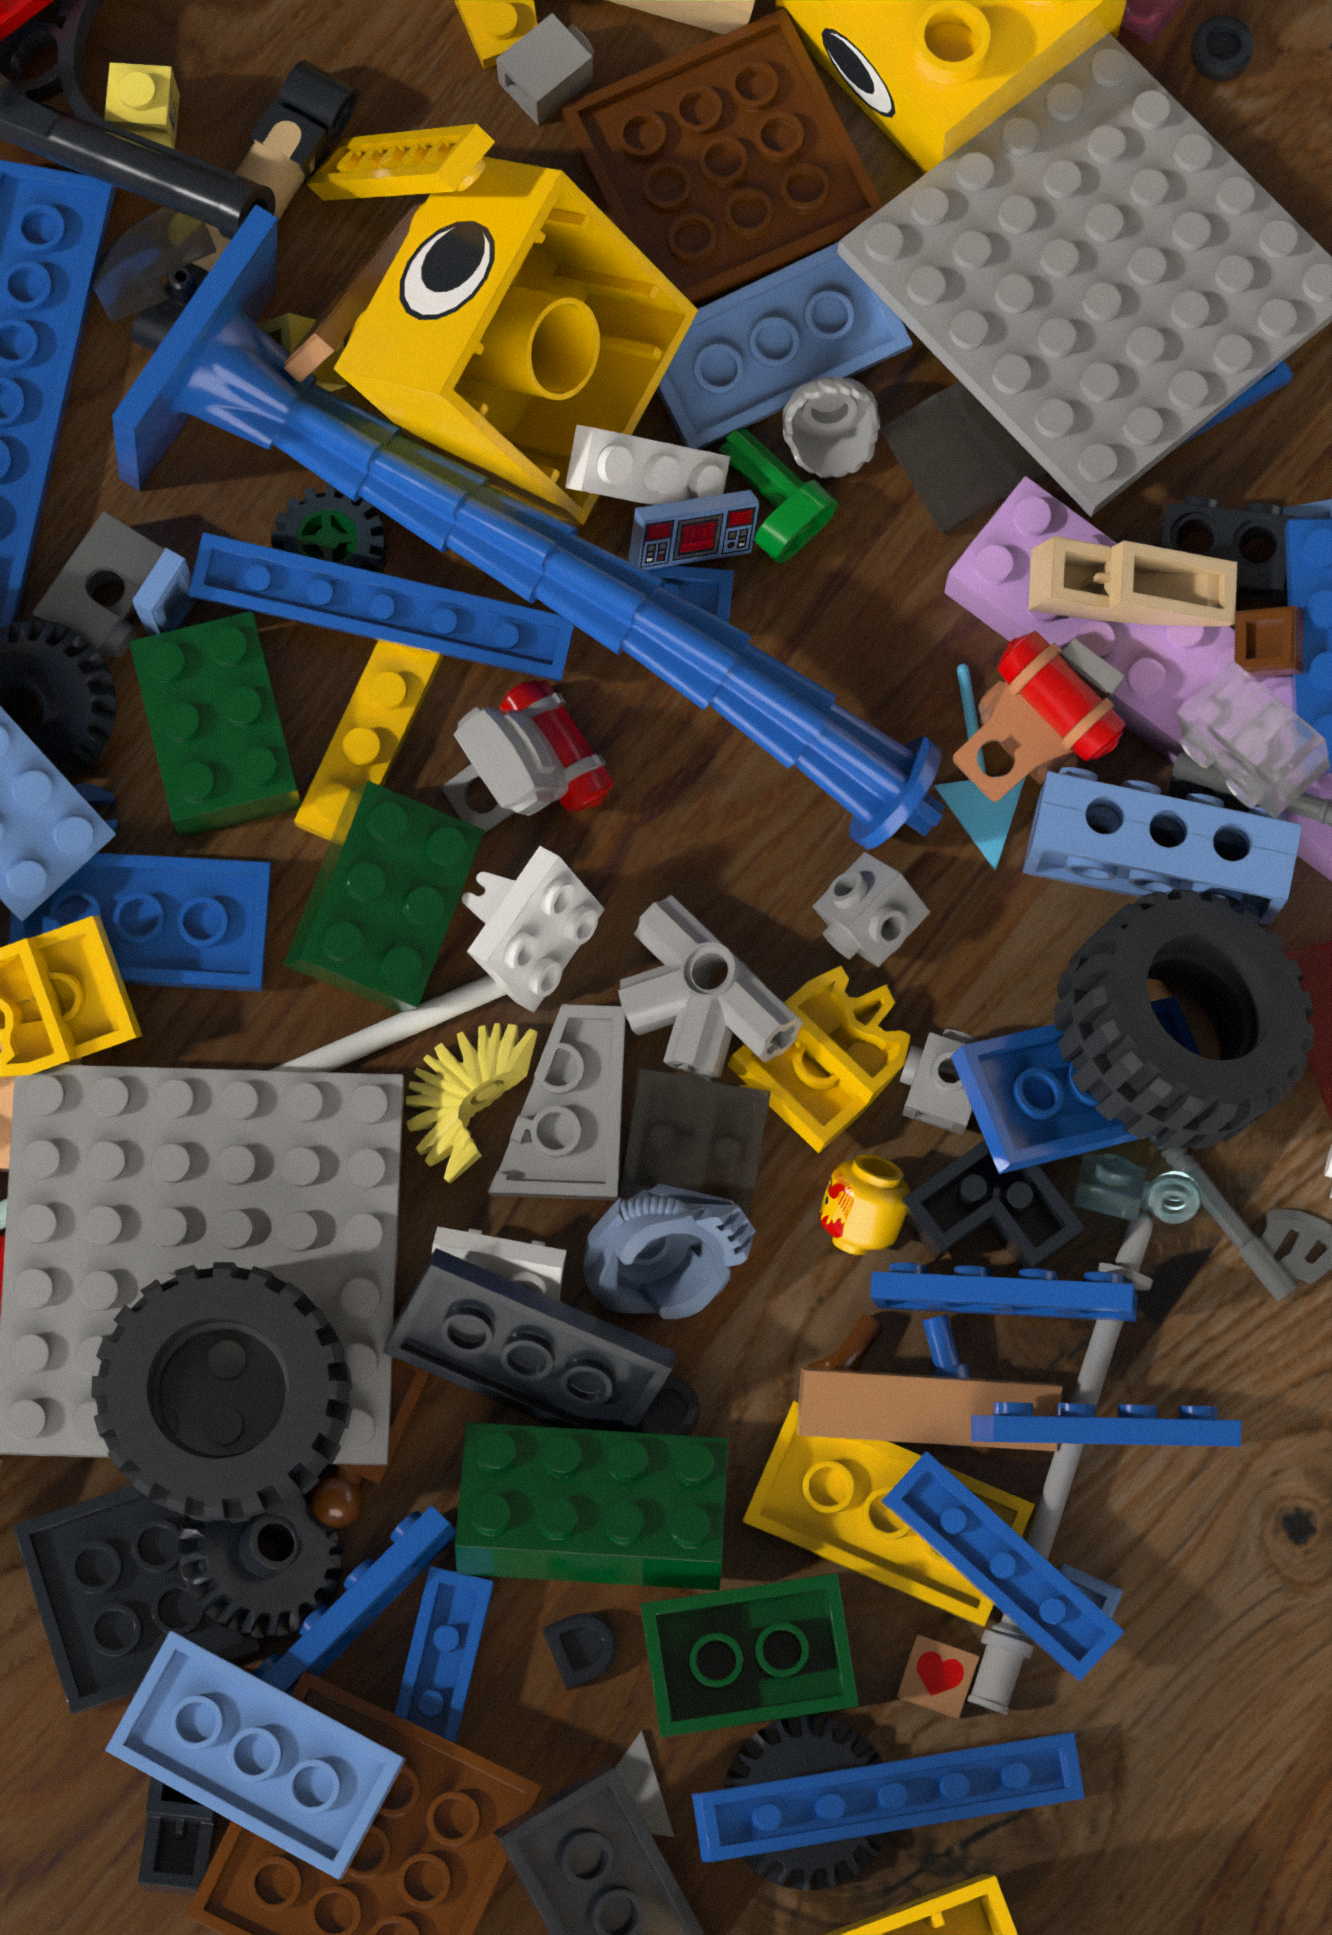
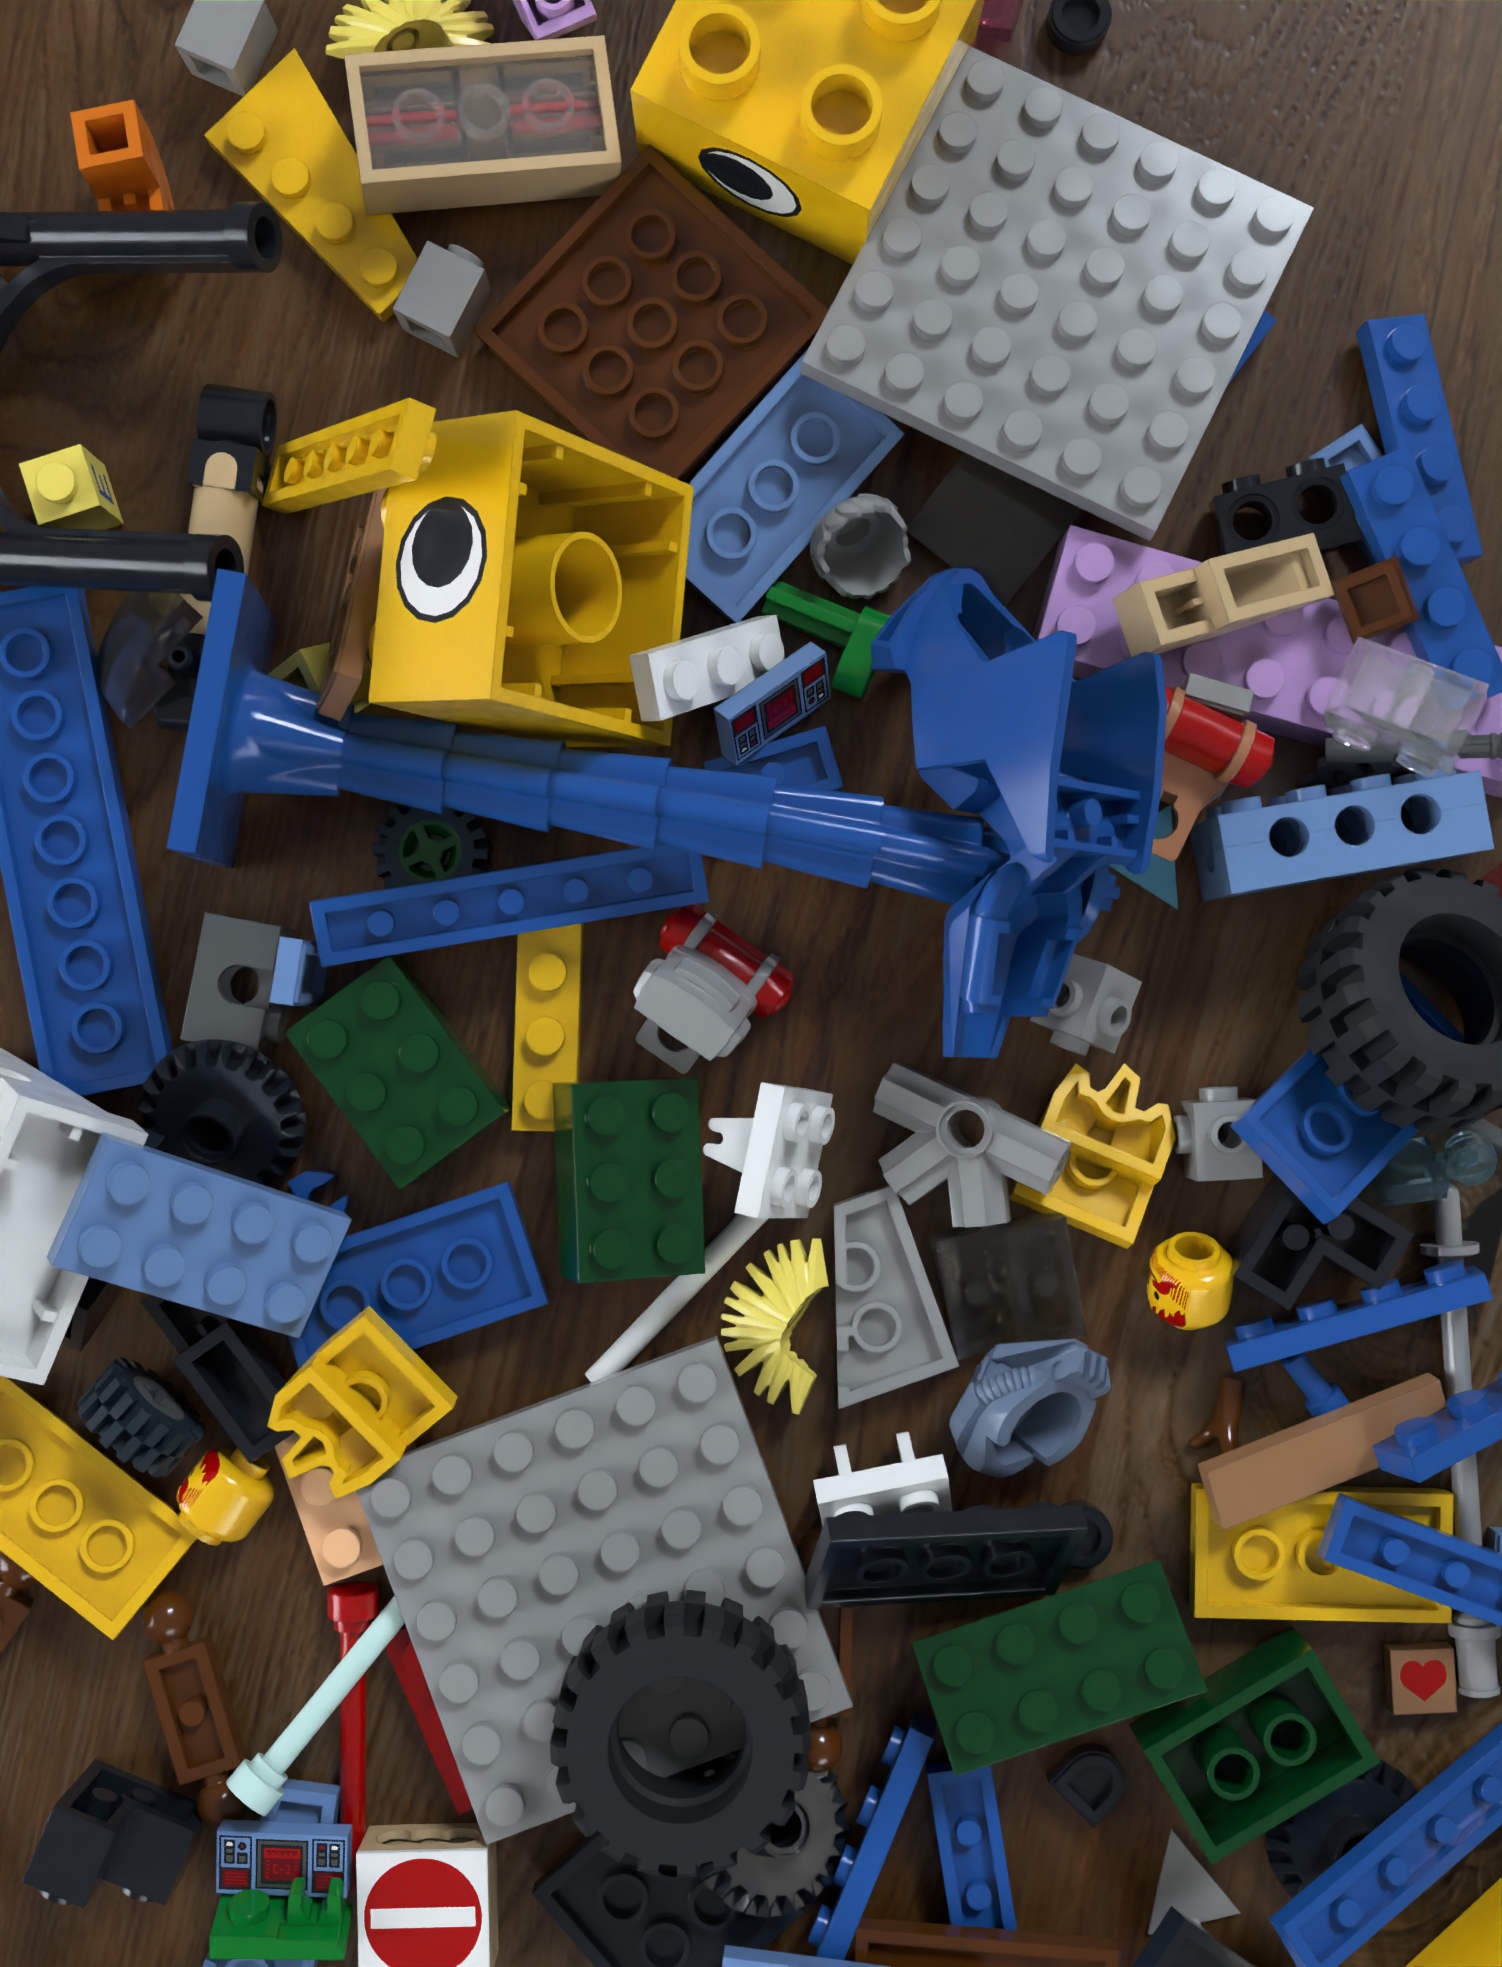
camera: 25 degrees left, 10 degrees up
(911, 670) = (1015, 742): none -> blue piece

